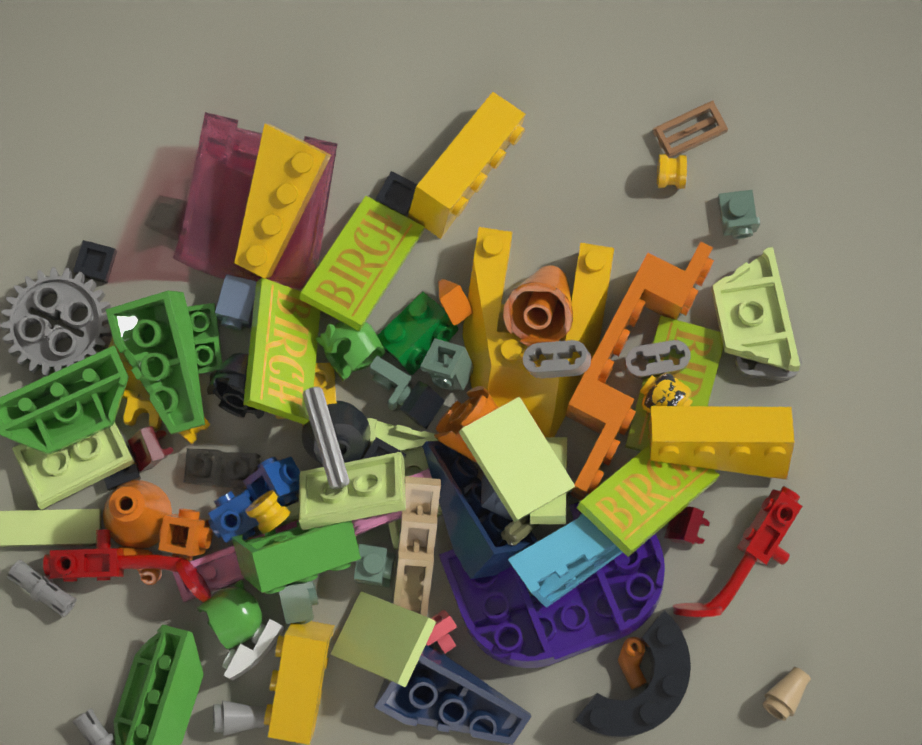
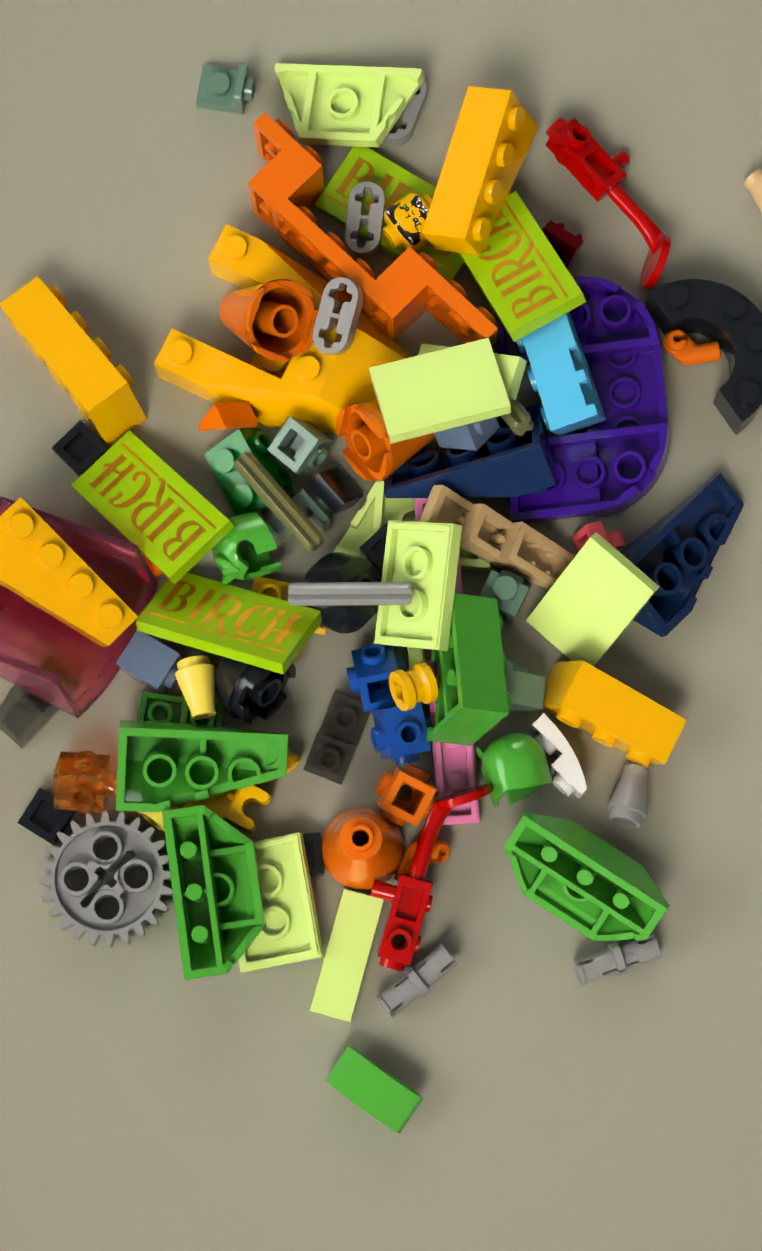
camera: 70 degrees left, 0 degrees up
(125, 278) = (83, 782): none -> clear orange brick
(147, 449) = (290, 813): tile -> none
(224, 343) = (197, 684): none -> light yellow cone
(392, 360) = (279, 502): none -> olive axle
(665, 142) = (116, 141): medium nougat tile -> none
(671, 171) = (154, 142): yellow wheel -> none

